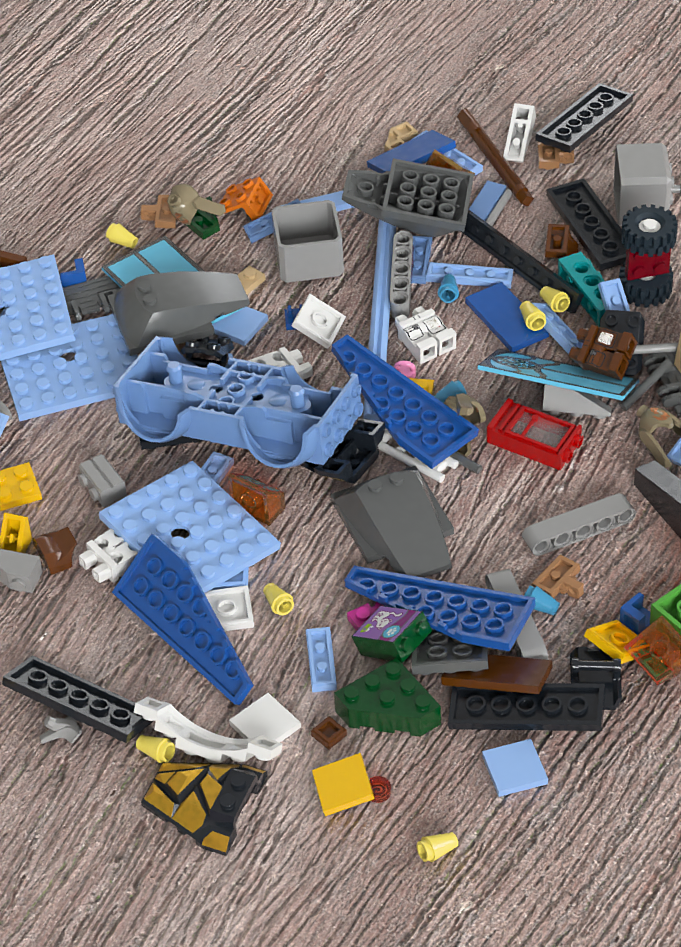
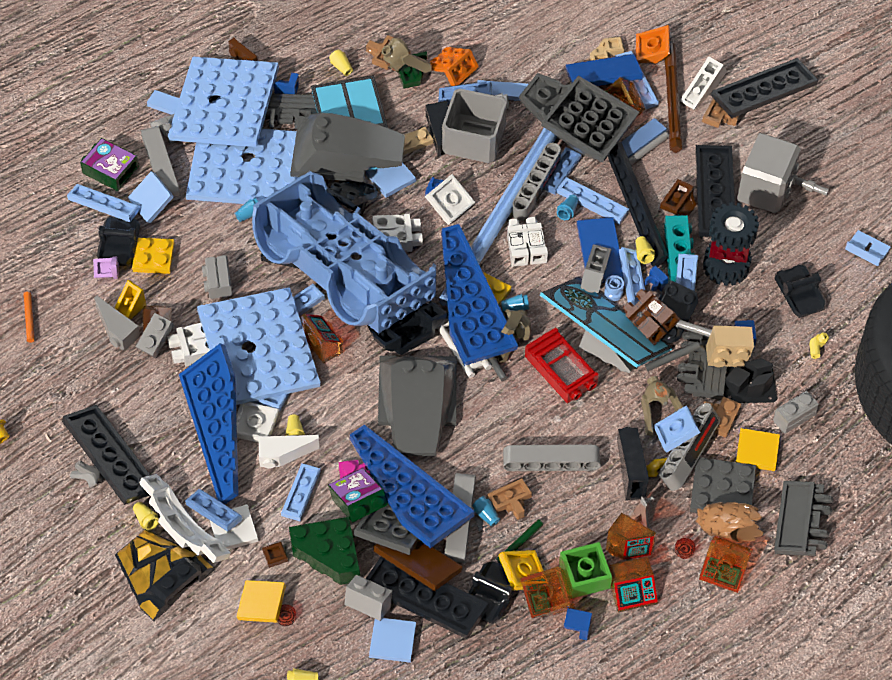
camera: 20 degrees right, 10 degrees up
(65, 559) = (155, 335): none -> light grey brick
(100, 404) = (246, 210): none -> dark azure cone
(233, 711) = (213, 510): none -> medium blue tile
(260, 254) = (435, 116): none -> black slope
(276, 623) = (280, 450): none -> white slope
(406, 368) = (494, 268): bright pink tile -> none
(446, 116) = (653, 45): none -> orange slope
(465, 731) = (368, 597): none -> light grey brick
(516, 332) = (595, 269): none -> light grey slope
(533, 317) = (616, 260): light yellow cone -> none
(544, 344) = (614, 288): none -> light blue wheel
(583, 318) = (657, 278): none -> blue tile
(595, 615) = (523, 538): none -> dark green bar
(635, 615) = (550, 552): blue panel -> none

